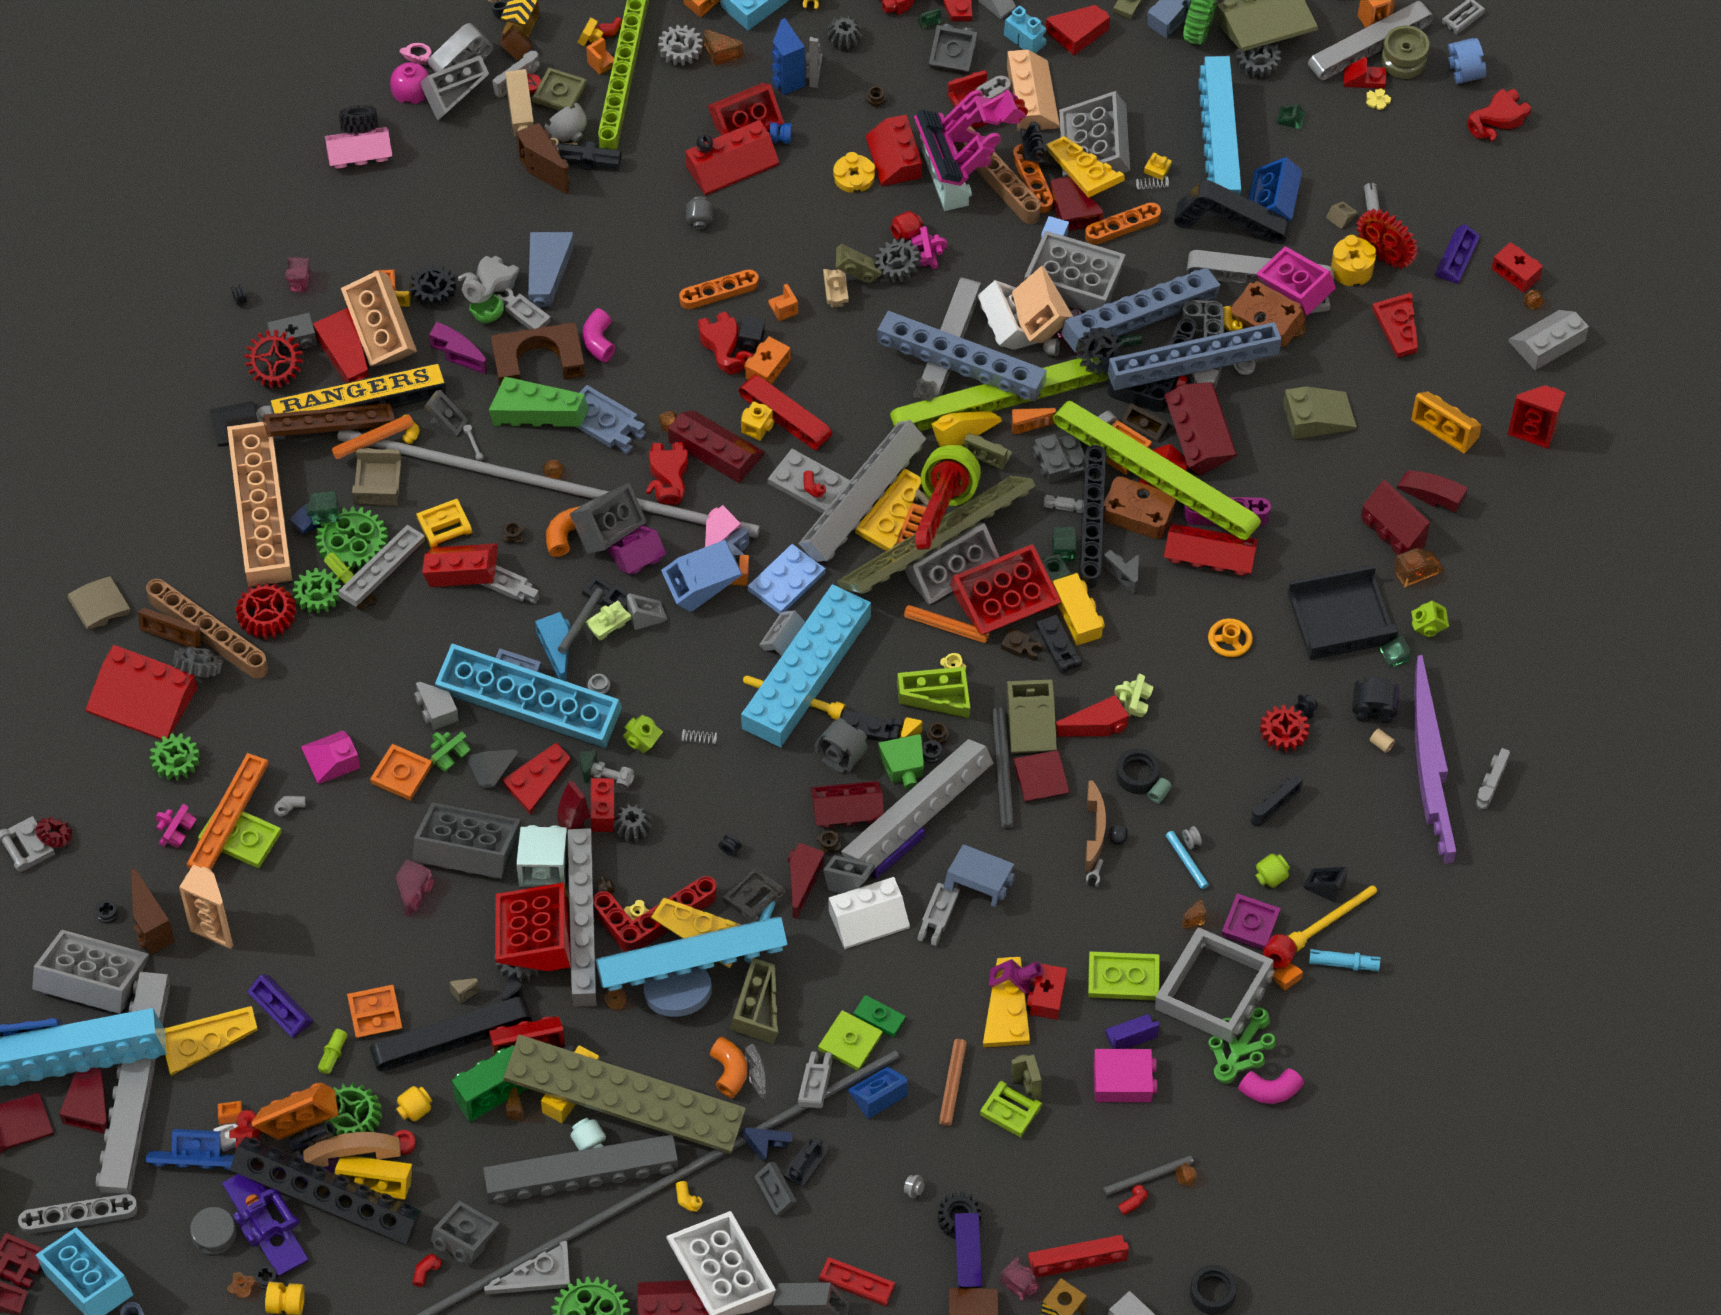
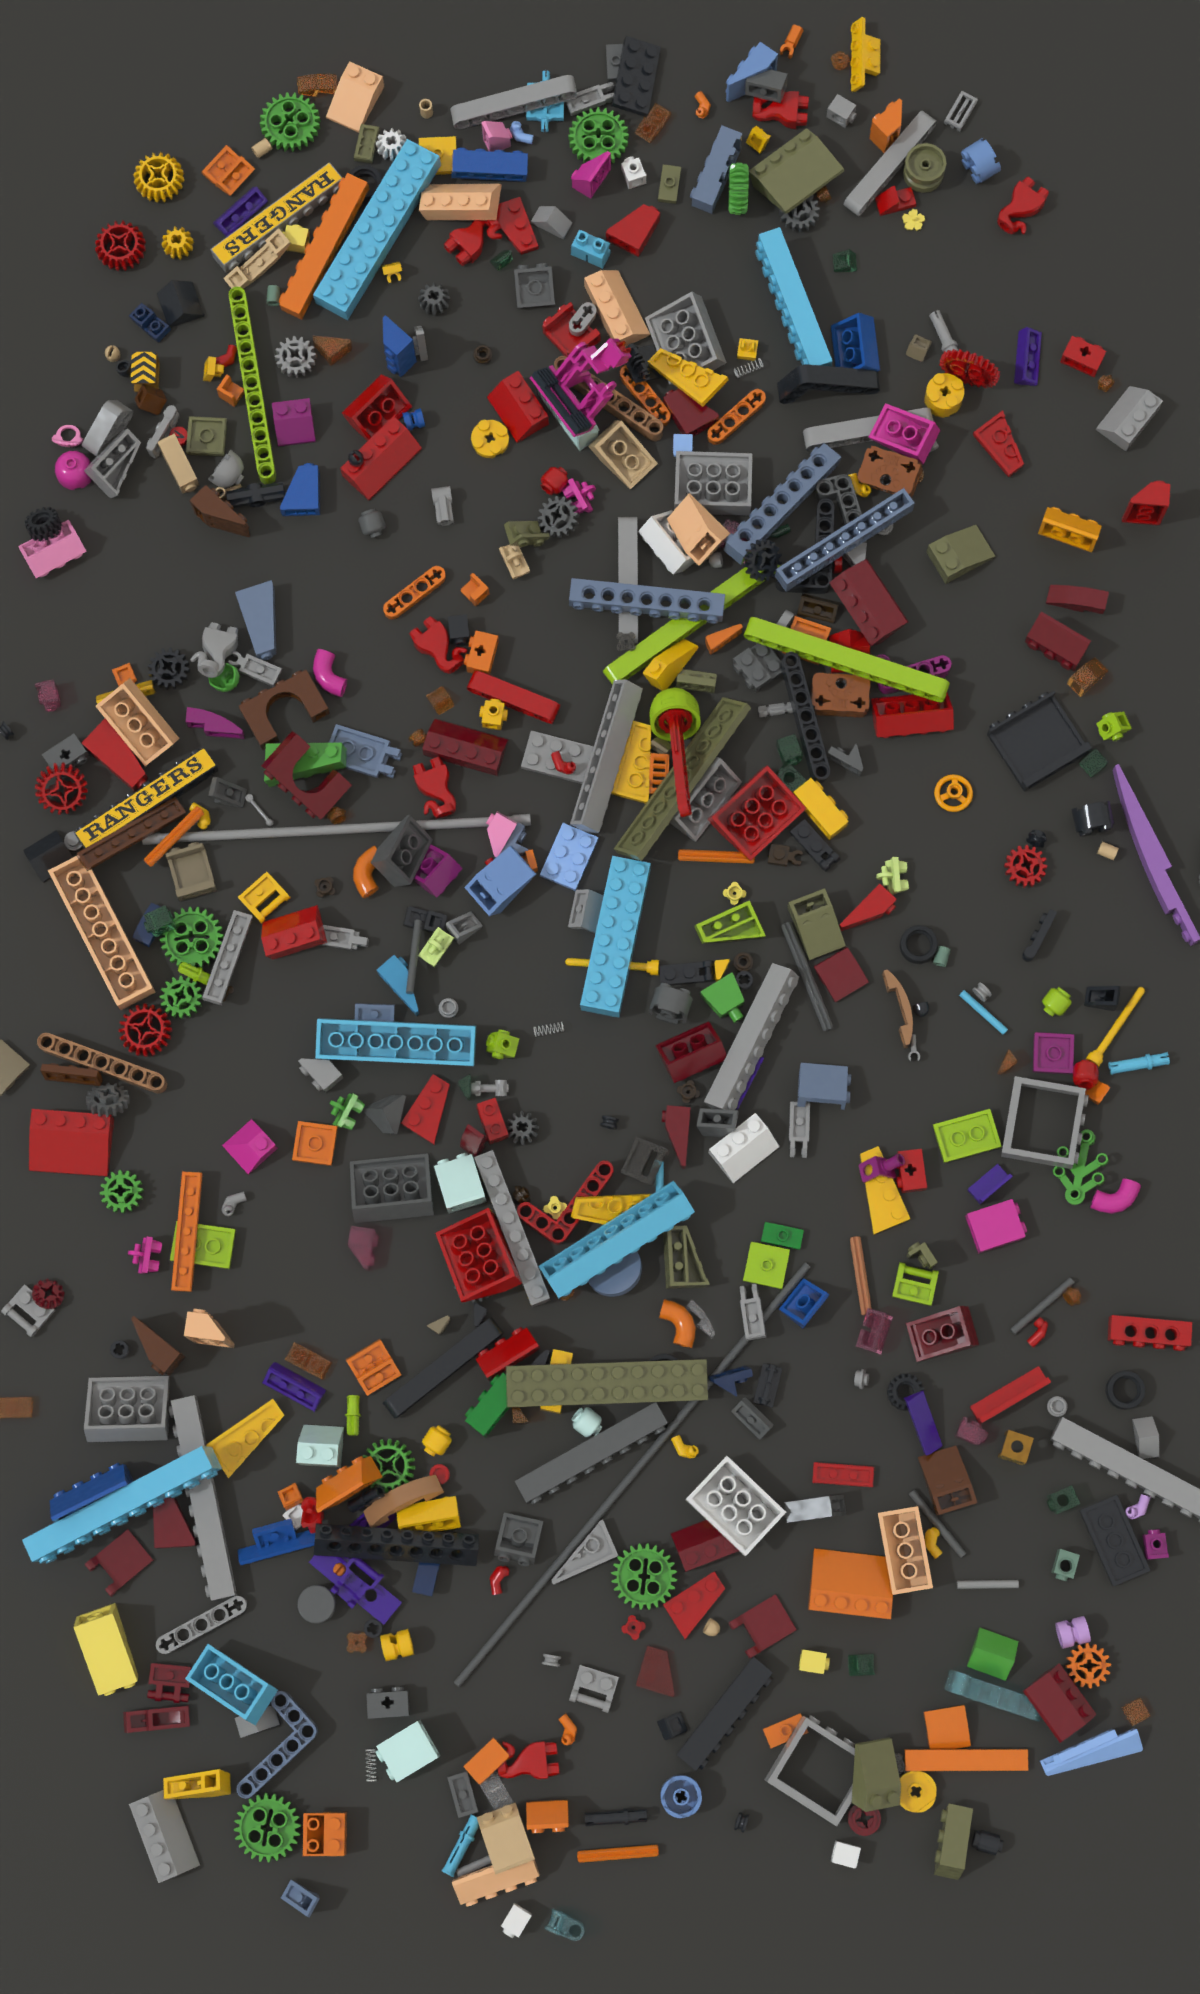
camera: 15 degrees left, 20 degrees up
(280, 1070) = (320, 1446): none -> light aqua slope
(306, 984) = (308, 1361): none -> clear orange slope
(345, 1239) = (426, 1578): none -> dark blue slope
(534, 446) = (281, 766): none -> dark red arch
(638, 167) = (303, 493): none -> blue slope
(654, 101) = (293, 422): none -> magenta slope
(706, 396) = (440, 700): none -> clear orange slope
(781, 214) = (442, 501): none -> light grey piece
(954, 1132) = (879, 1324): none -> clear pink piece
(988, 222) = (623, 454): none -> tan slope
(1024, 1167) = (942, 1333): none -> dark red slope
(1128, 1282) = (1057, 1406): none -> light grey plate
(1255, 1226) = (1181, 1329): none -> red brick
(1290, 49) = (823, 194): none -> clear orange plate

